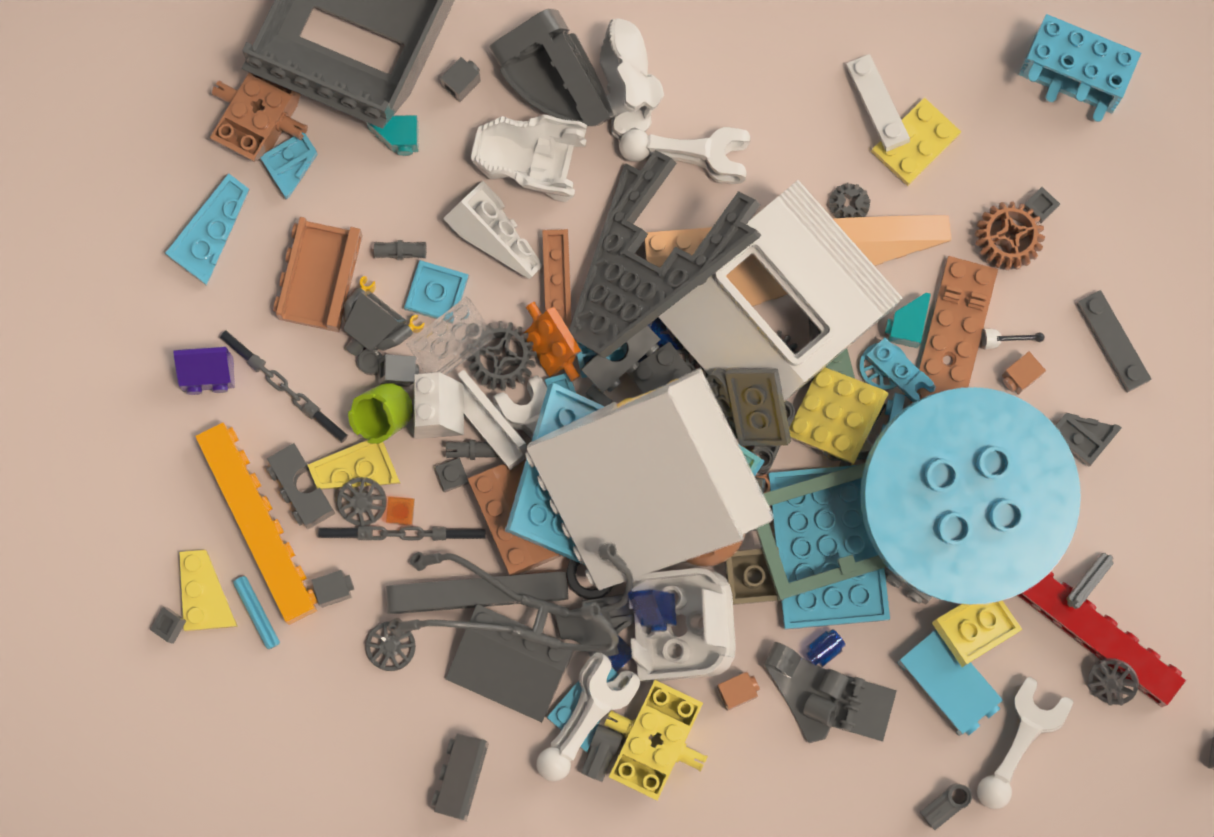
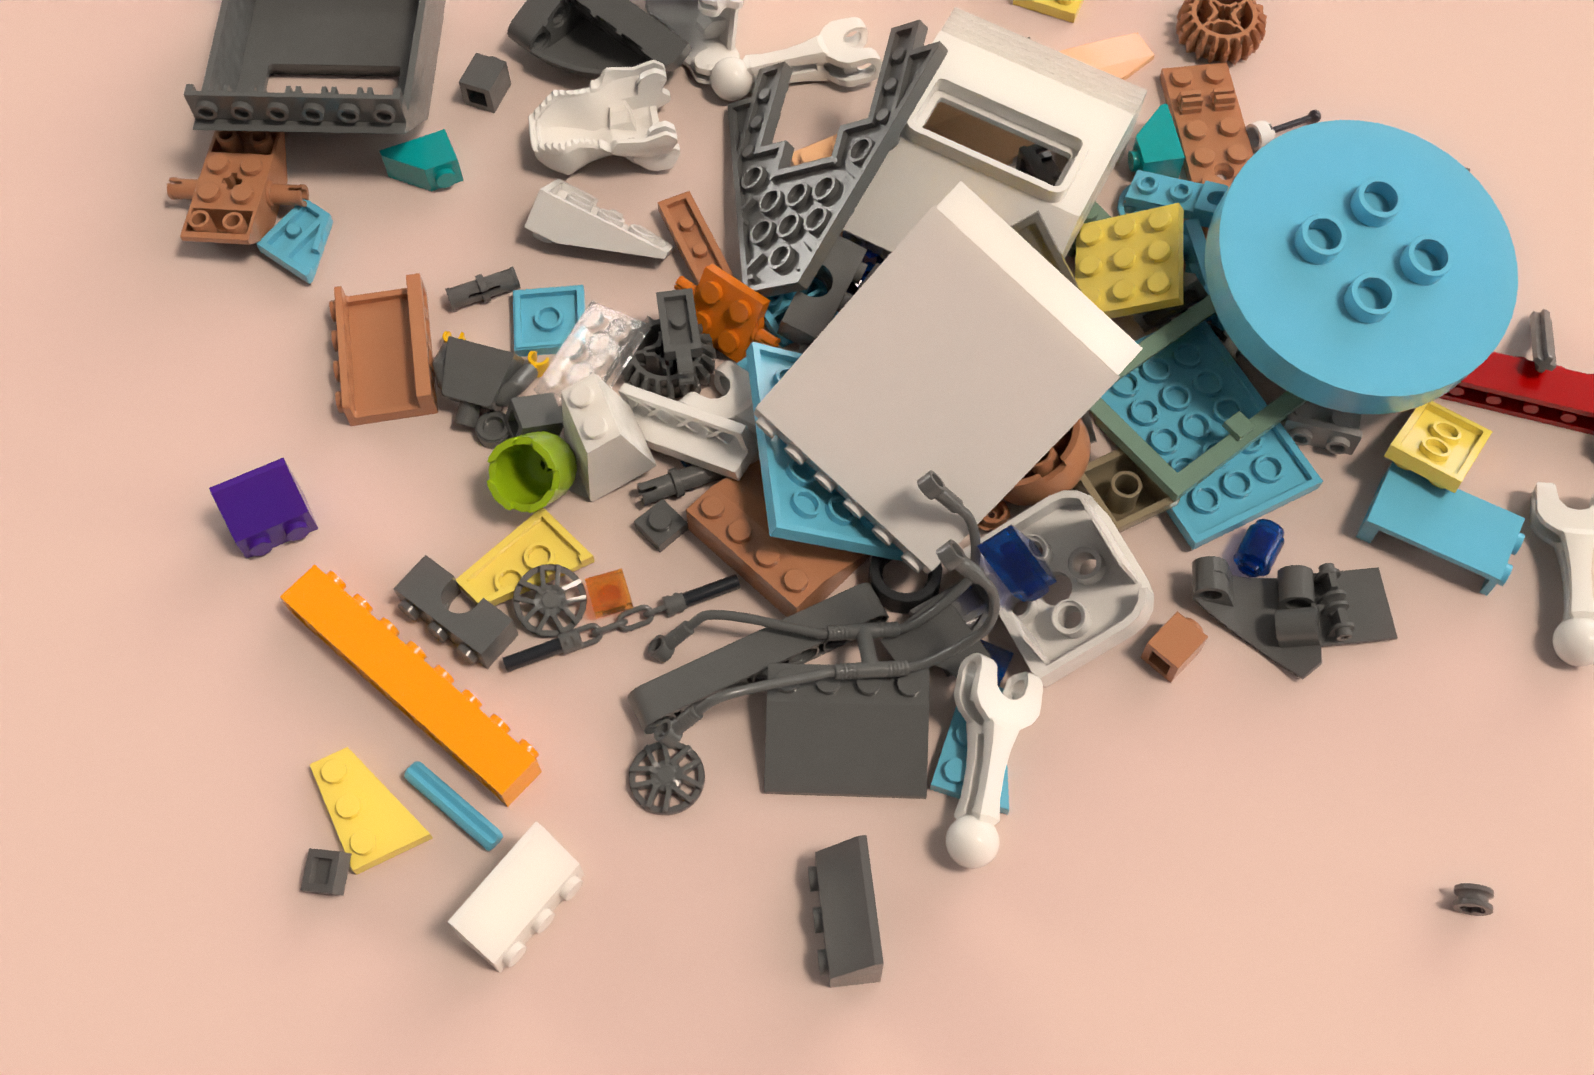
camera: 20 degrees left, 15 degrees down
(206, 234) = (215, 356): medium azure wing -> none
(274, 690) = (518, 898): none -> white slope
(309, 409) = (431, 513): piece -> none
(333, 588) = (552, 727): dark grey brick -> none
(514, 346) = (679, 330): none -> dark grey plate
(604, 747) = (1031, 791): dark grey piece -> none
(663, 713) = (1103, 715): light yellow slope -> none
(944, 807) = (1528, 685): dark grey piece -> none
(1114, 341) = (1401, 91): dark grey plate -> none

